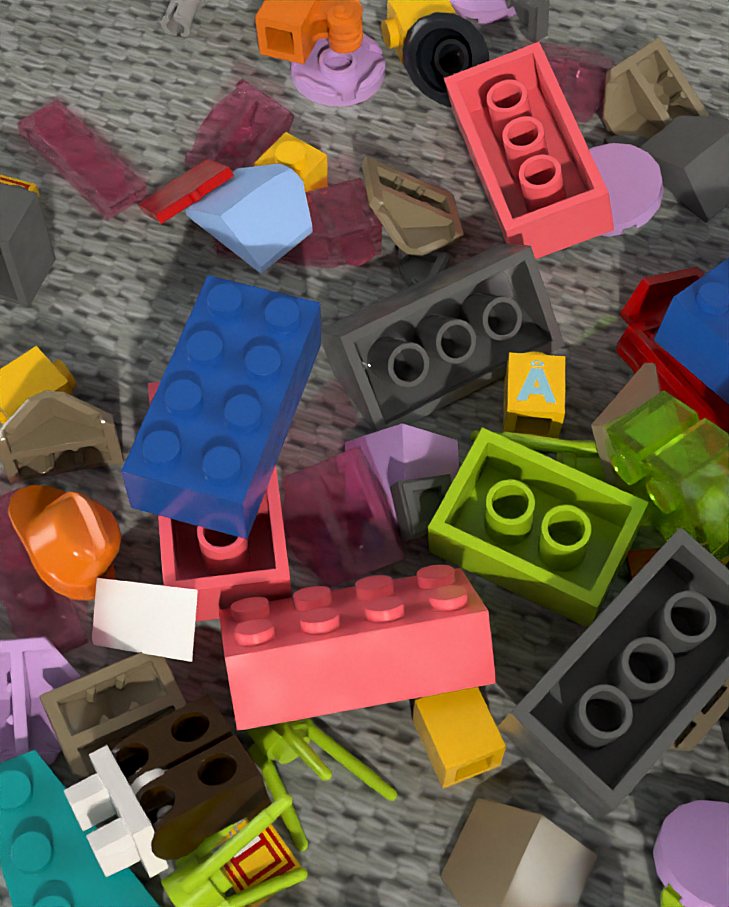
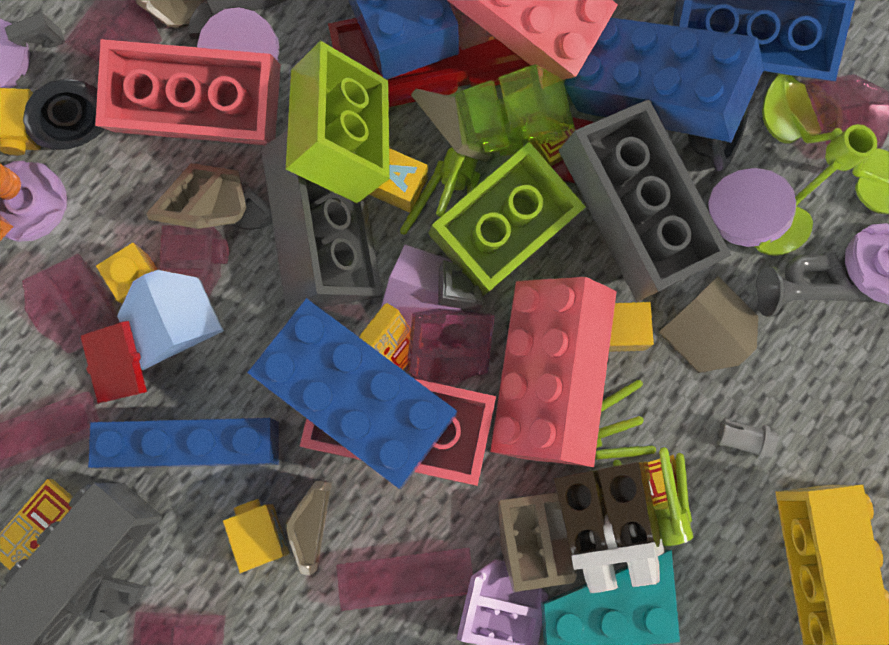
camera: 70 degrees left, 20 degrees up
(66, 538) = (389, 542): orange piece -> none
(117, 289) = (184, 443): none -> blue brick
(145, 618) = (482, 504): white sticker -> none
(317, 430) = (389, 335): none -> yellow tile
(562, 291) = (338, 124): none -> lime brick

